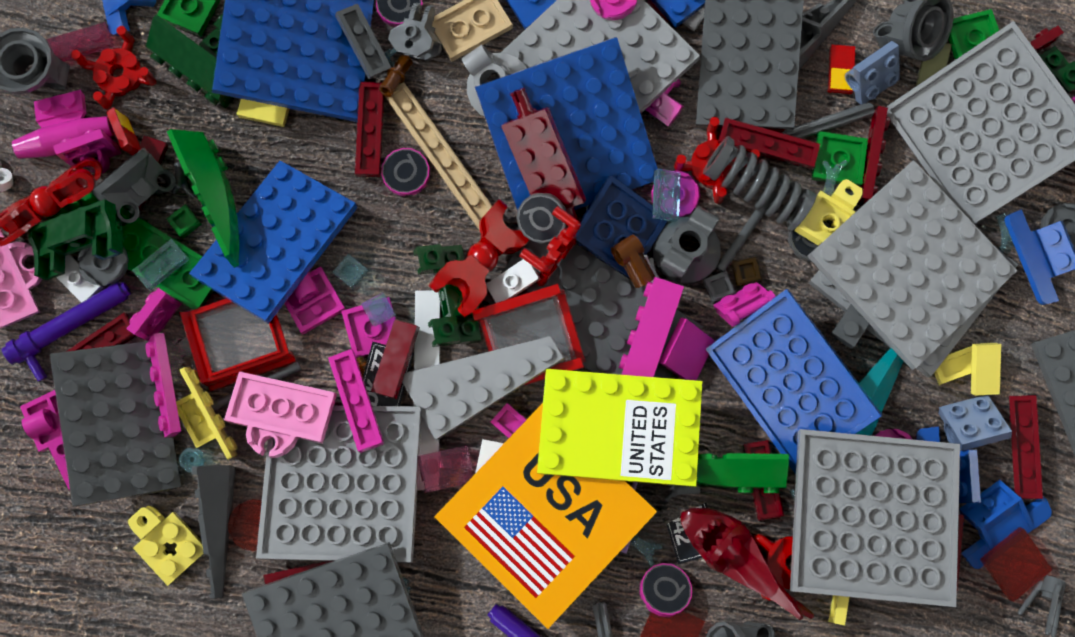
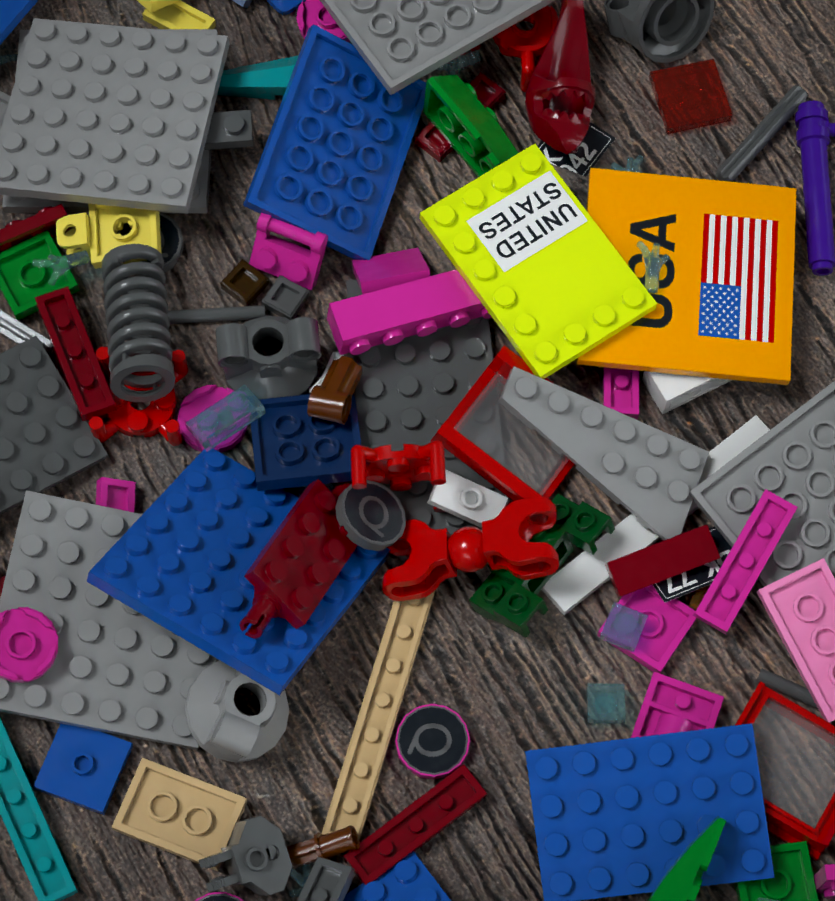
camera: 135 degrees left, 10 degrees down
(445, 468) = (728, 419): clear pink plate -> none
(563, 493) = (652, 265): none -> clear light blue bar
(665, 590) = (653, 124): black tile -> none

